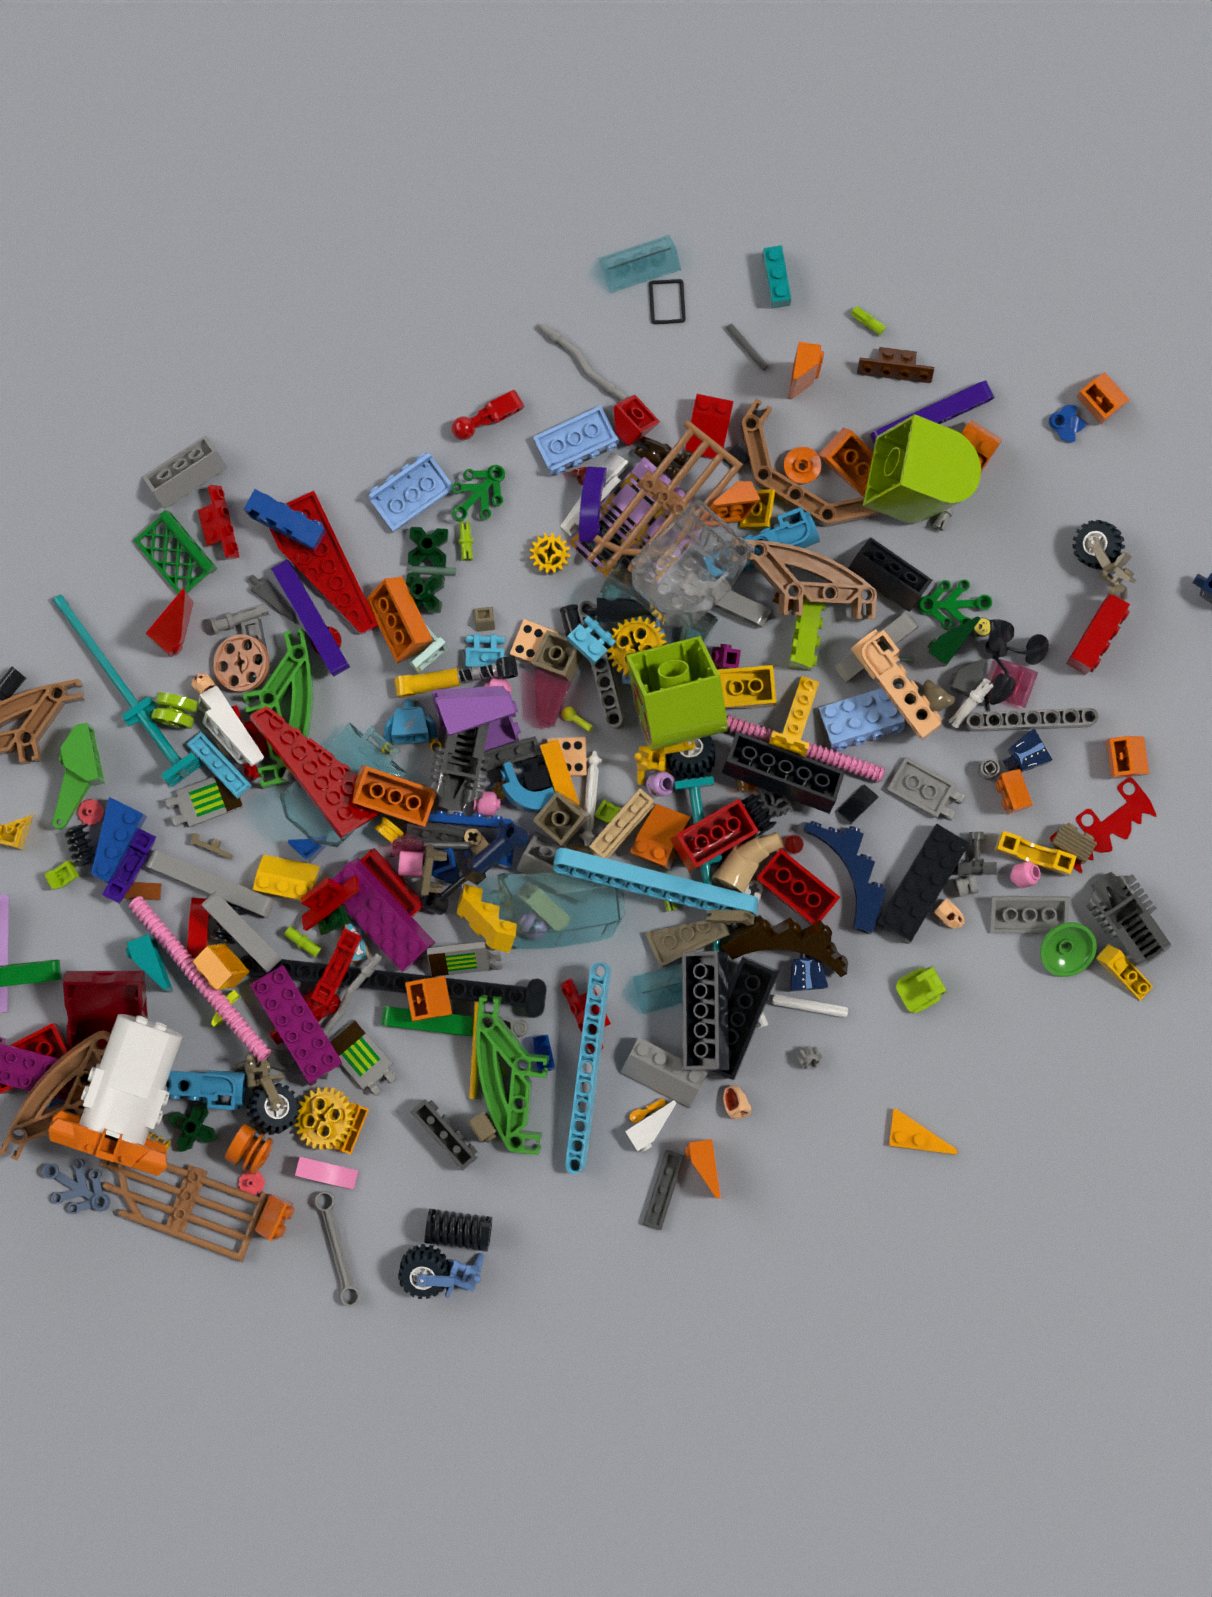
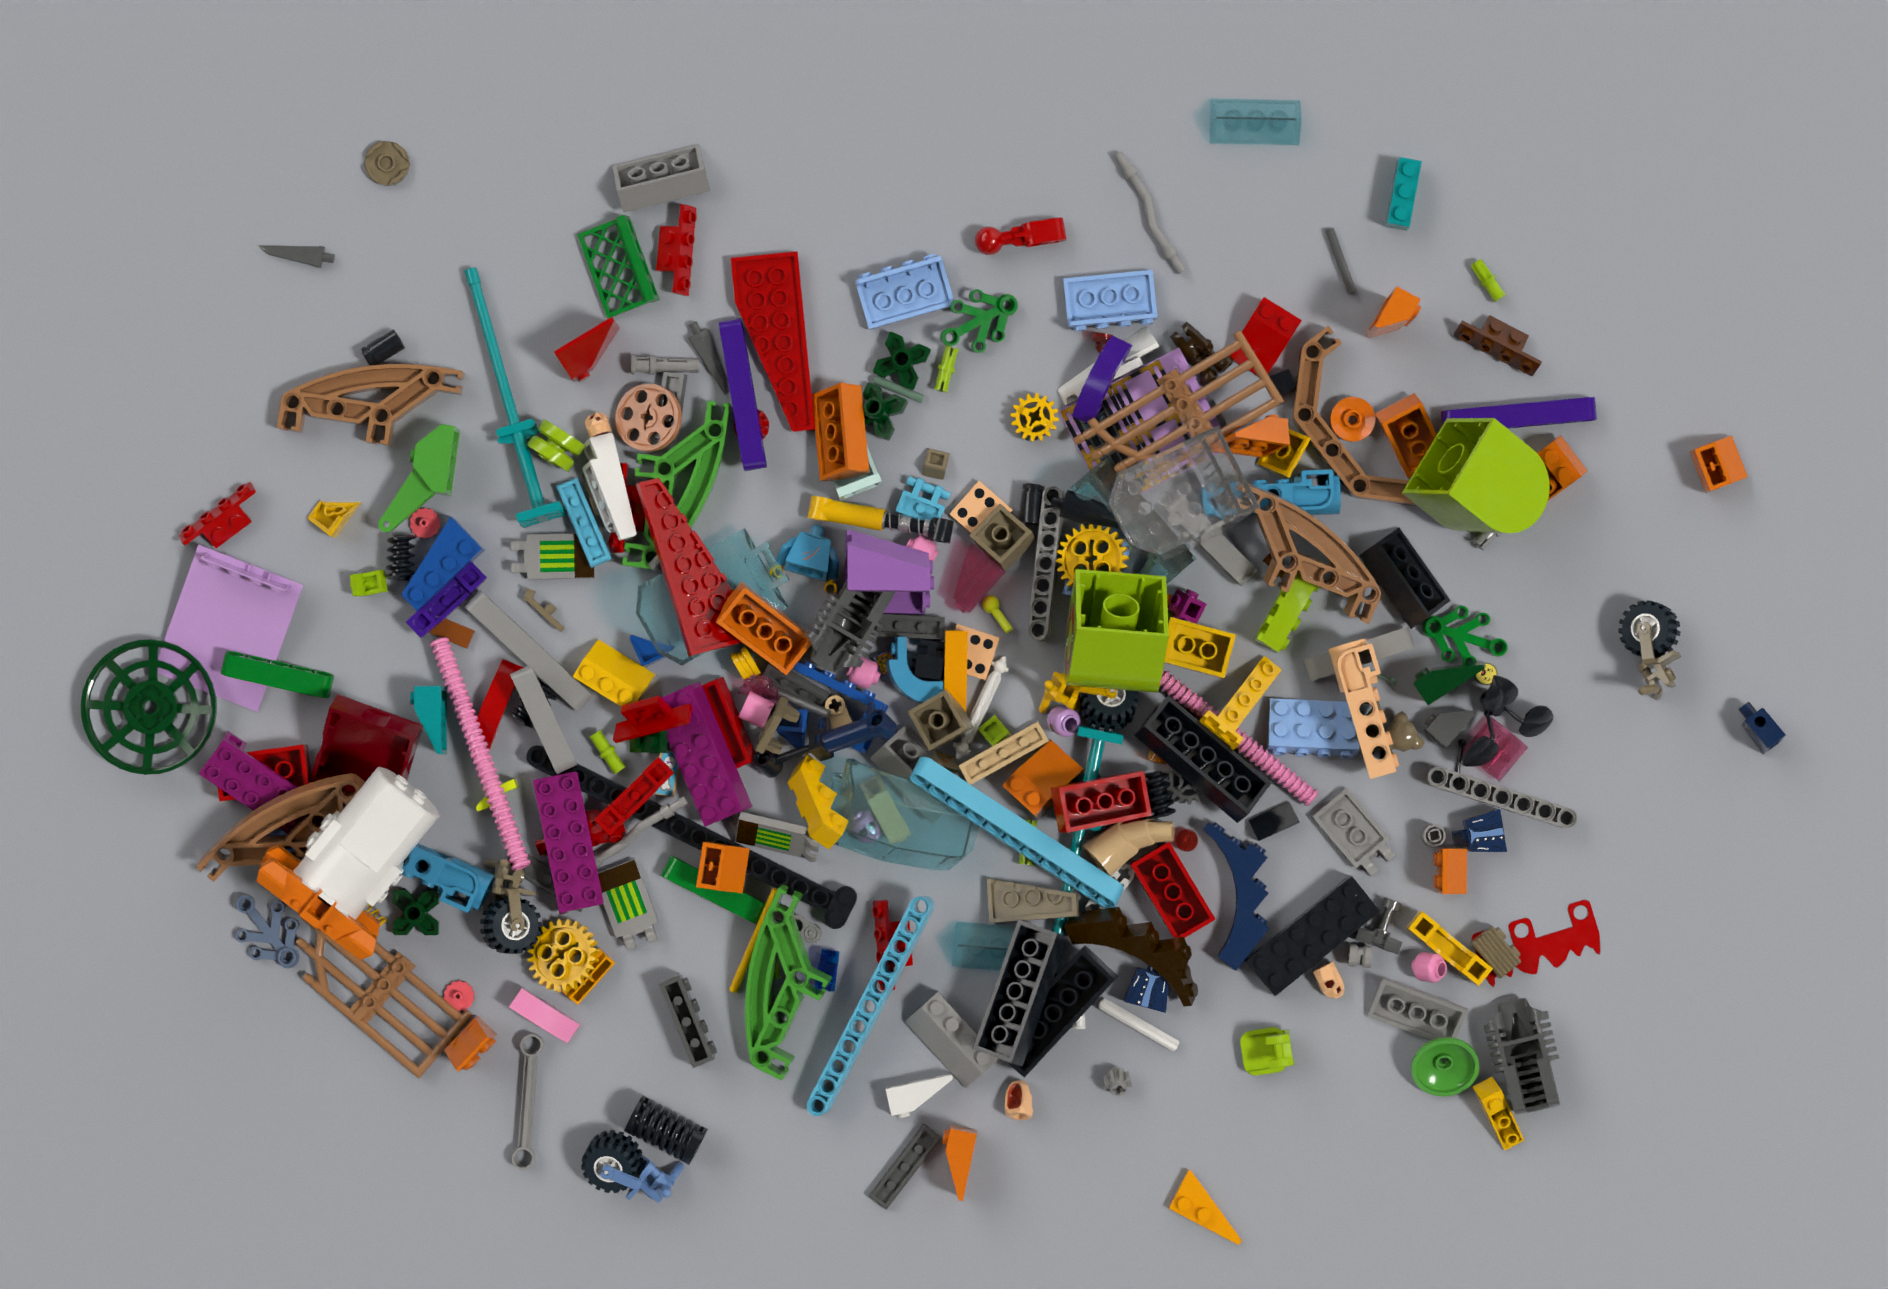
camera: 20 degrees right, 5 degrees up
(220, 966) = (508, 749): light orange piece -> none
(249, 1149) = (469, 960): orange wheel -> none
(284, 520) = (751, 274): blue wedge -> none
(483, 1127) = (732, 1029): dark tan brick -> none
(588, 644) = (1038, 536): medium azure plate -> none
(633, 420) = (1182, 299): red slope -> none
(639, 1114) = (907, 1075): light orange piece -> none
(652, 301) = (1252, 171): black piece -> none
(731, 916) = (1087, 898): dark tan piece -> none
(976, 697) = (1448, 752): white pin -> none
(1069, 423) = (1670, 479): blue plate -> none
(1098, 633) = (1609, 730): red brick -> none
(1127, 756) = (1591, 877): orange slope -> none

